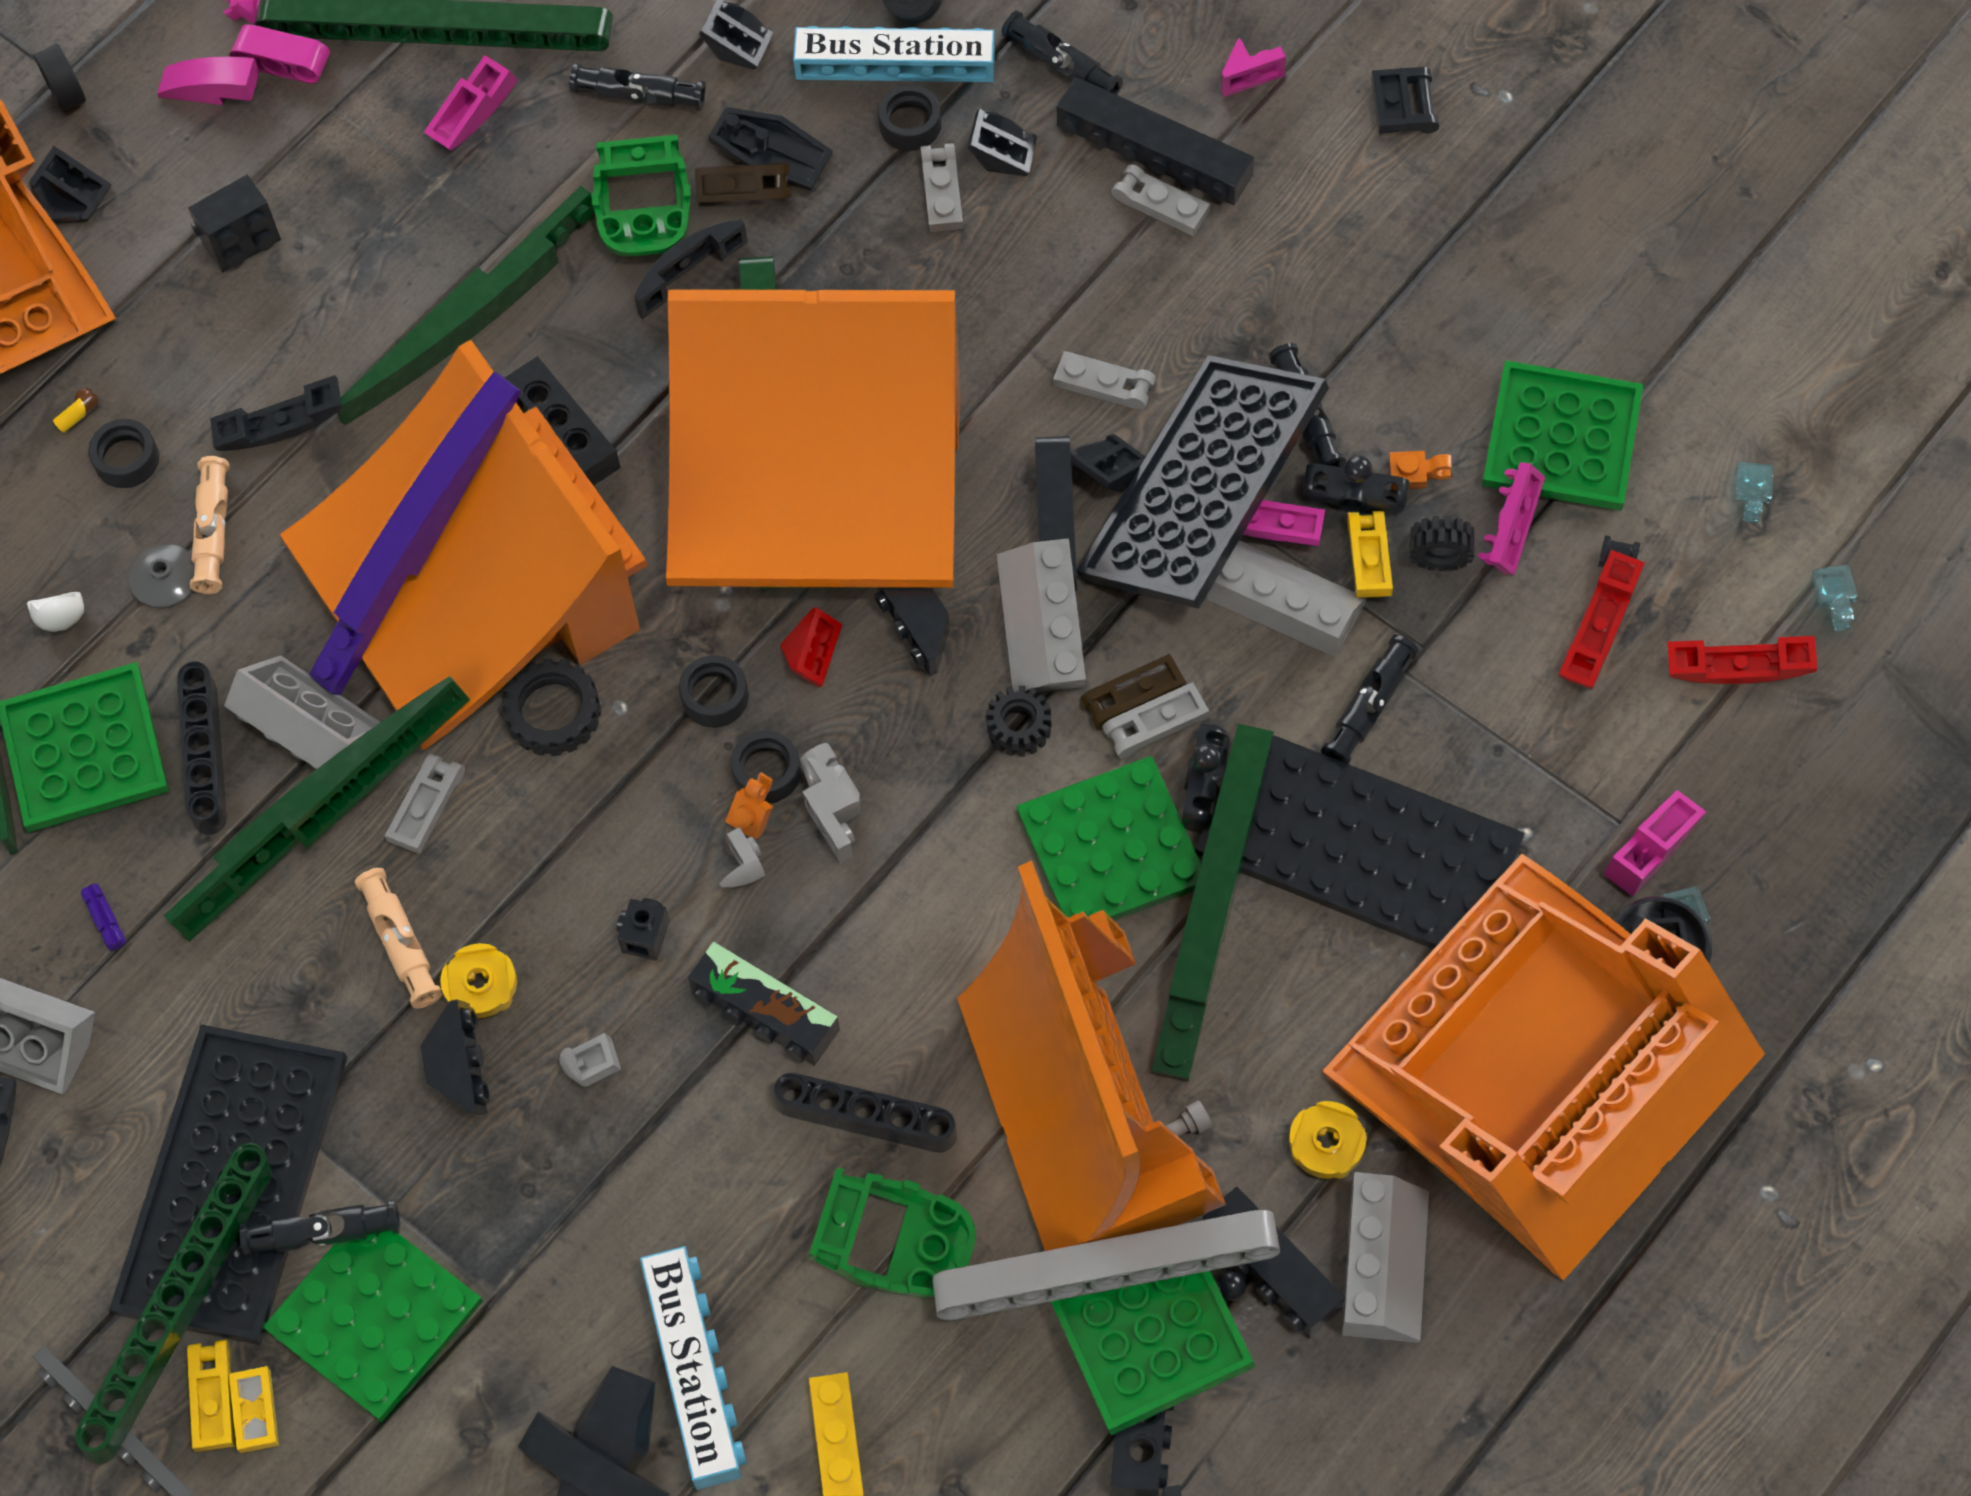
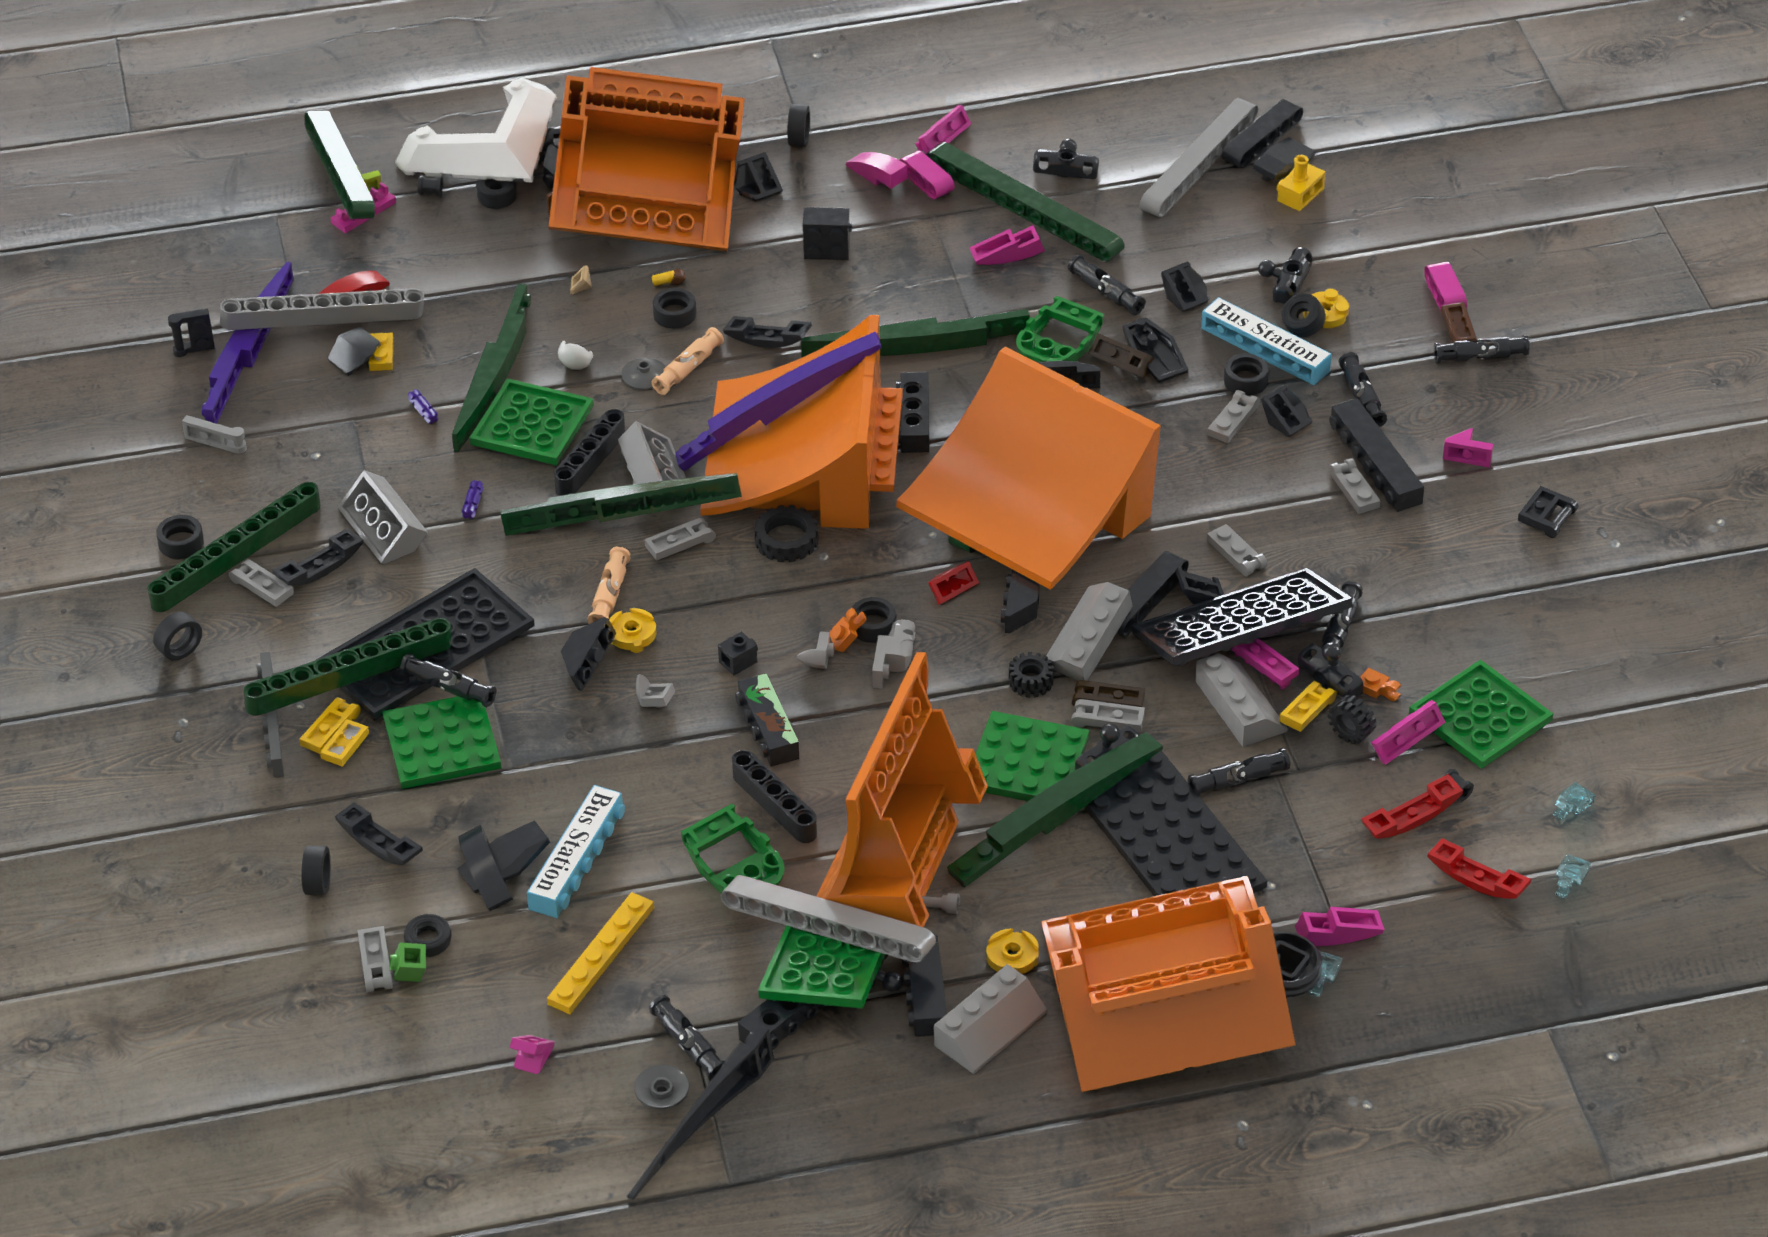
camera: 35 degrees right, 20 degrees down
(707, 667) = (878, 559): black tyre -> none

